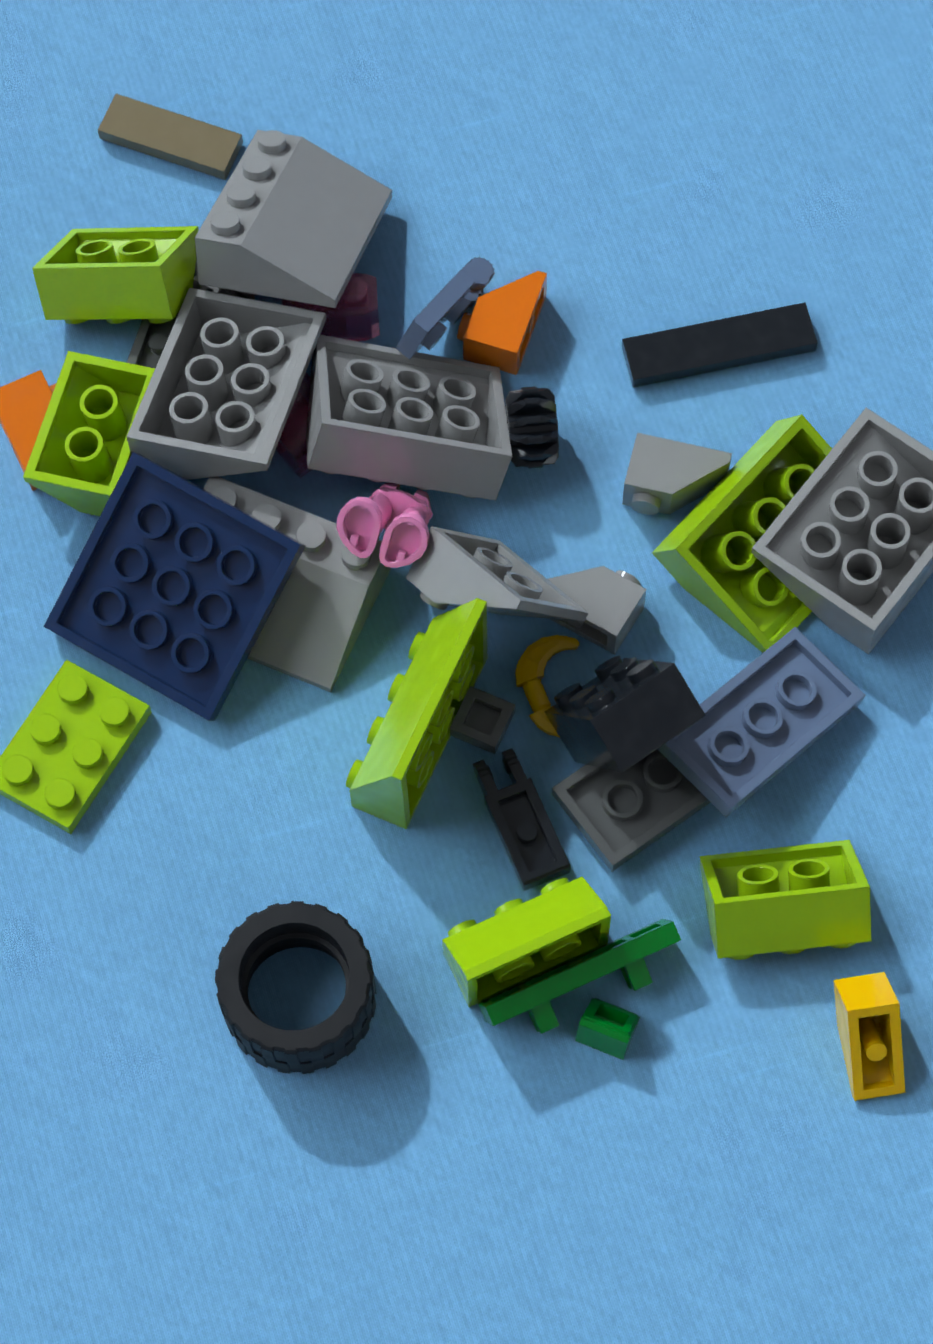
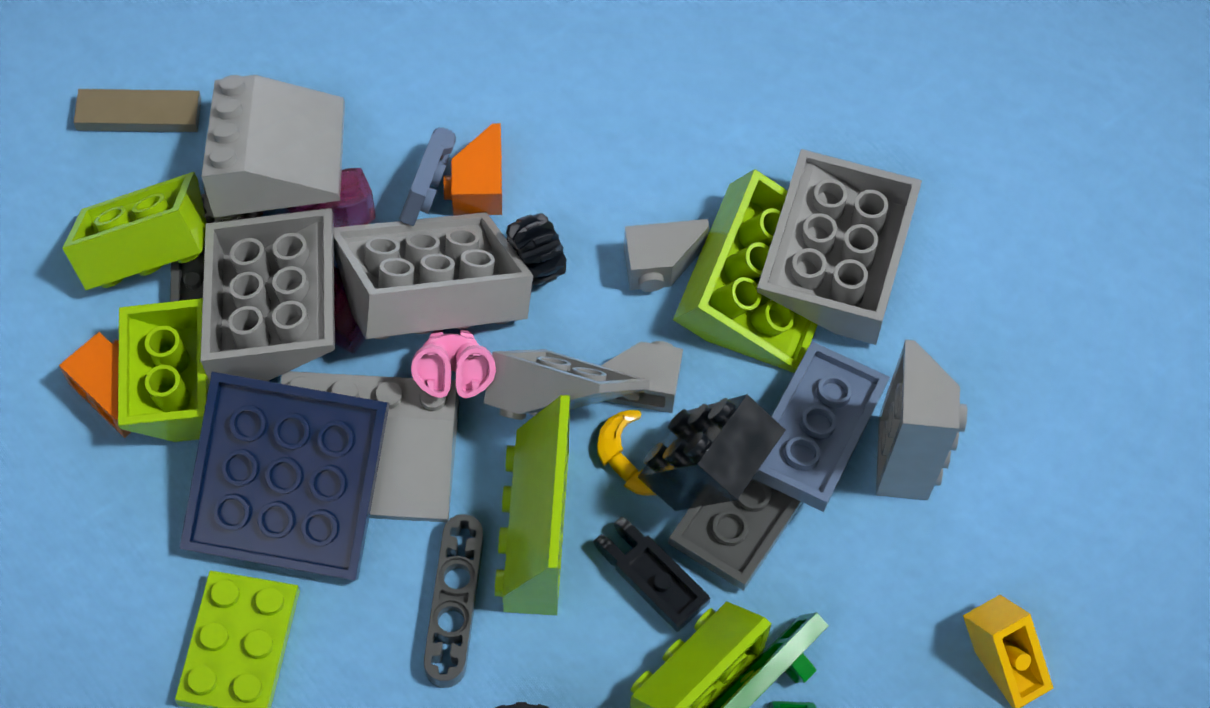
camera: 25 degrees left, 5 degrees down
(298, 773) = (453, 599): none -> dark grey beam
(482, 720) = (587, 501): dark grey plate -> none
(719, 344) = (656, 140): black tile -> none
(786, 899) = (896, 563): lime slope -> none
(856, 762) = (917, 426): none -> light grey slope

